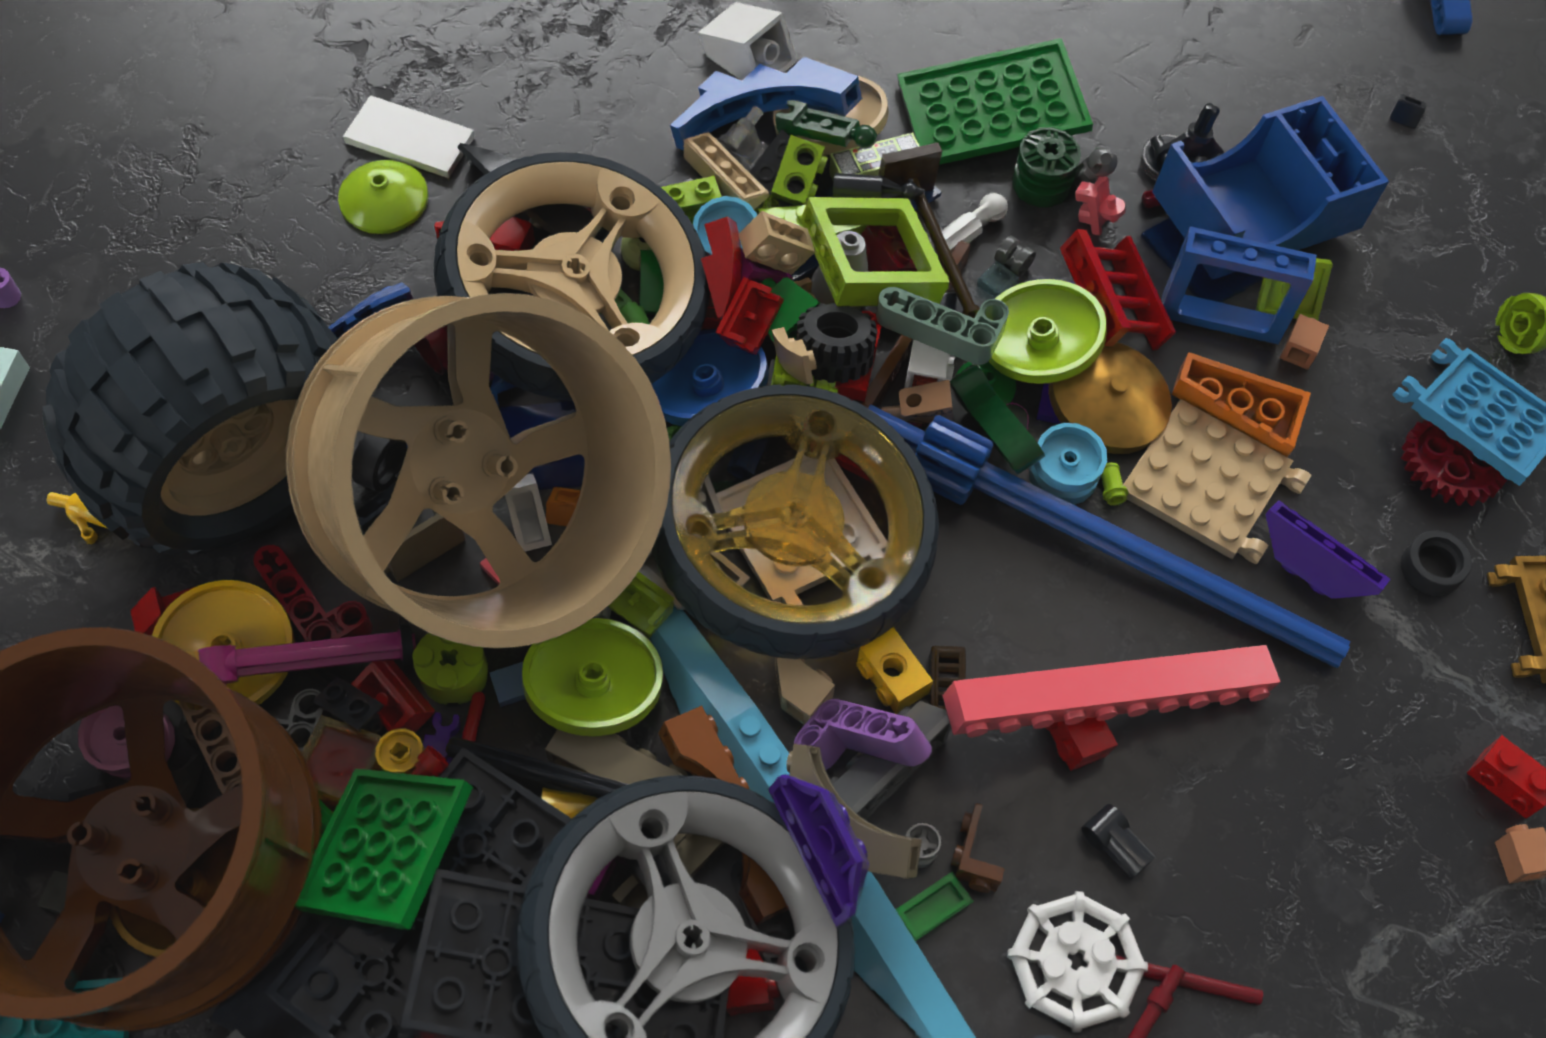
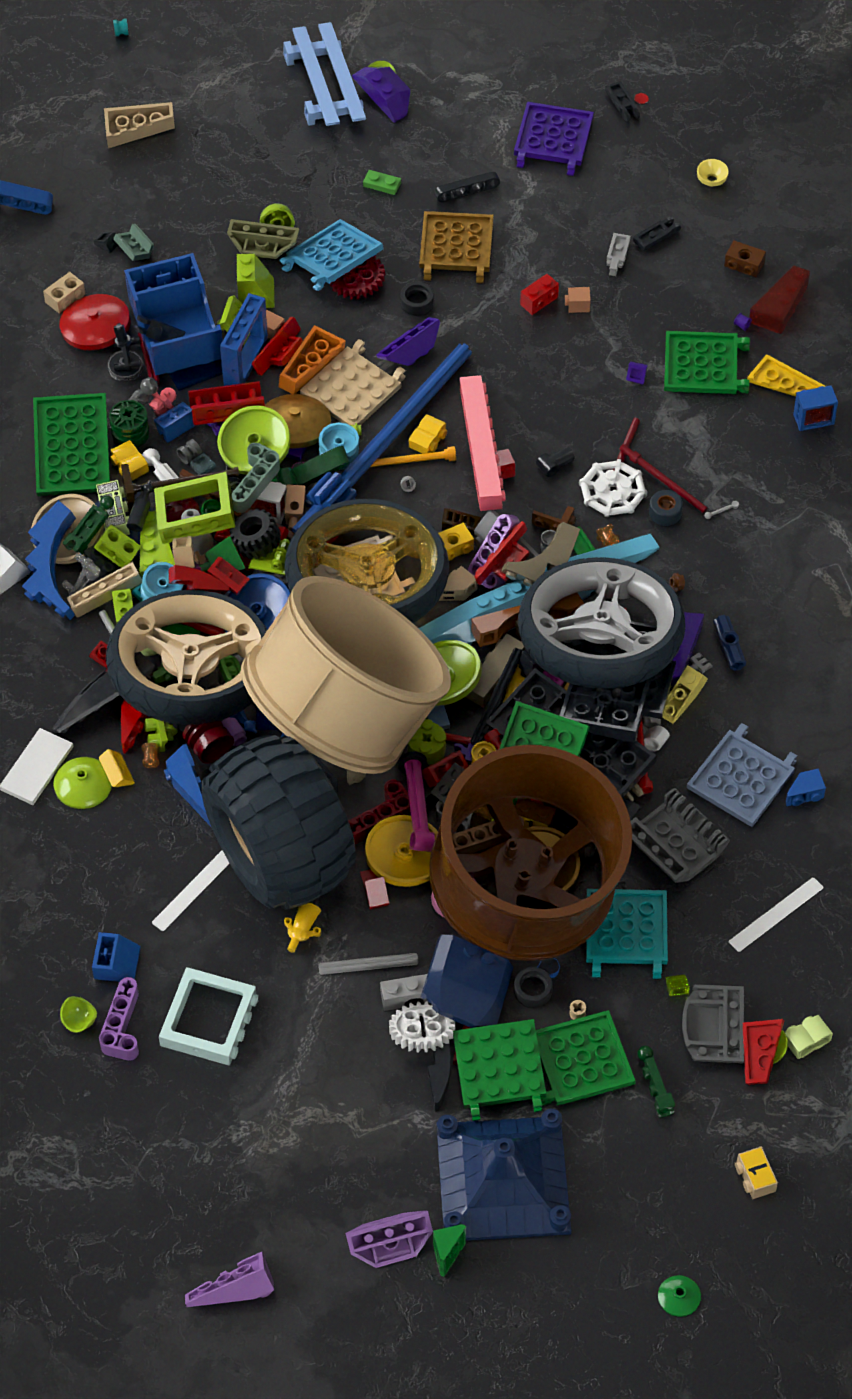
camera: 80 degrees left, 5 degrees down
(16, 593) = (368, 963): none -> light grey axle
(52, 261) = (115, 957): none -> blue slope
(402, 231) = (116, 769): none -> yellow slope
(417, 265) = (150, 755): none -> clear orange bush
(794, 356) = (270, 549): tan slope -> none
(825, 842) = (563, 554): dark purple wedge -> none
(847, 757) = (508, 551): none -> red bracket
(952, 958) = (607, 535): none -> clear orange brick
(981, 177) = (128, 454): none -> yellow brick
(1015, 581) = (412, 483): none -> light grey hinge
(1061, 220) = (175, 422): none -> blue hinge
(1095, 649) = (448, 454): none -> light orange piece
(1128, 608) = (427, 435): none -> yellow brick
(1228, 168) = (158, 330): none -> black hinge
(1241, 97) = (91, 321): none -> red dish
(1262, 355) = (280, 347): none -> red bracket
(1285, 64) = (64, 292): none -> tan brick
(1376, 986) = (636, 372): none -> dark purple tile
(1380, 299) = (254, 279): none -> lime slope
(1410, 139) = (135, 243): none -> sand green bracket
(1478, 301) = (262, 238): none -> olive wedge

